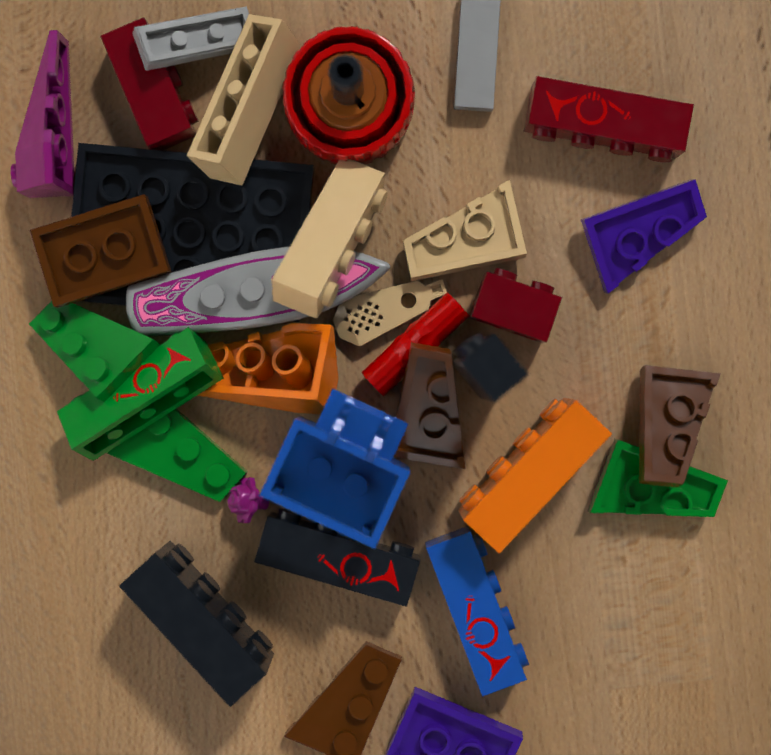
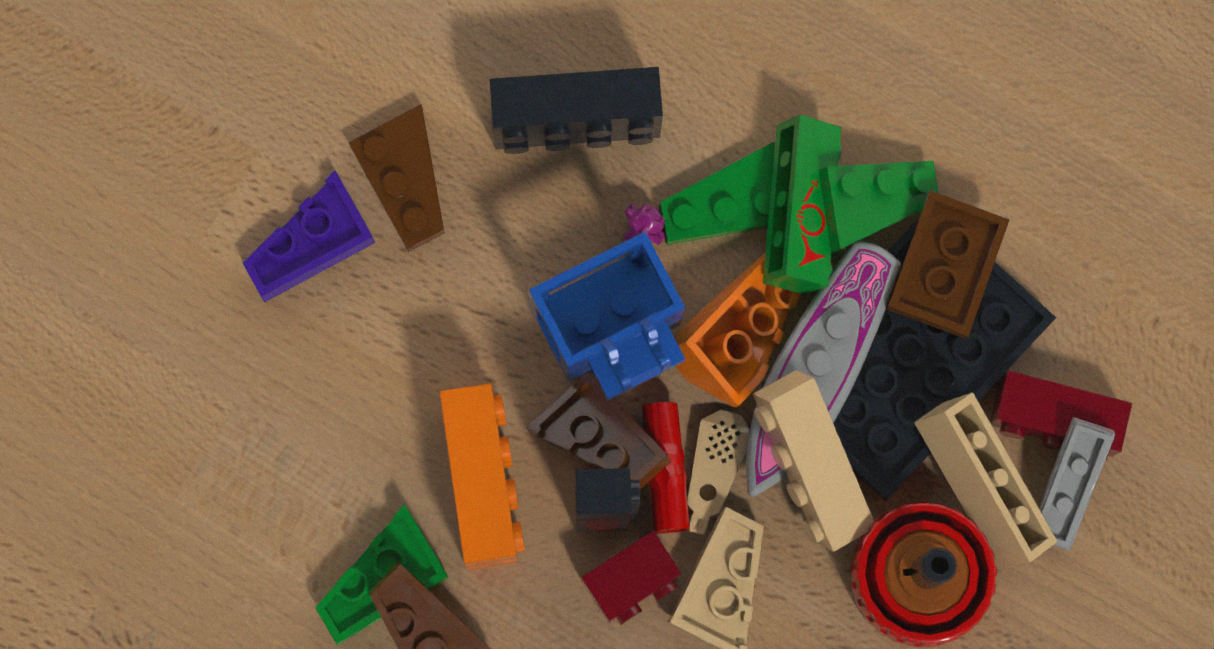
camera: 120 degrees right, 10 degrees down
(46, 139) = (1078, 293): magenta wedge -> none
(337, 559) = (544, 252): black brick -> none
(475, 610) = (397, 342): blue brick -> none

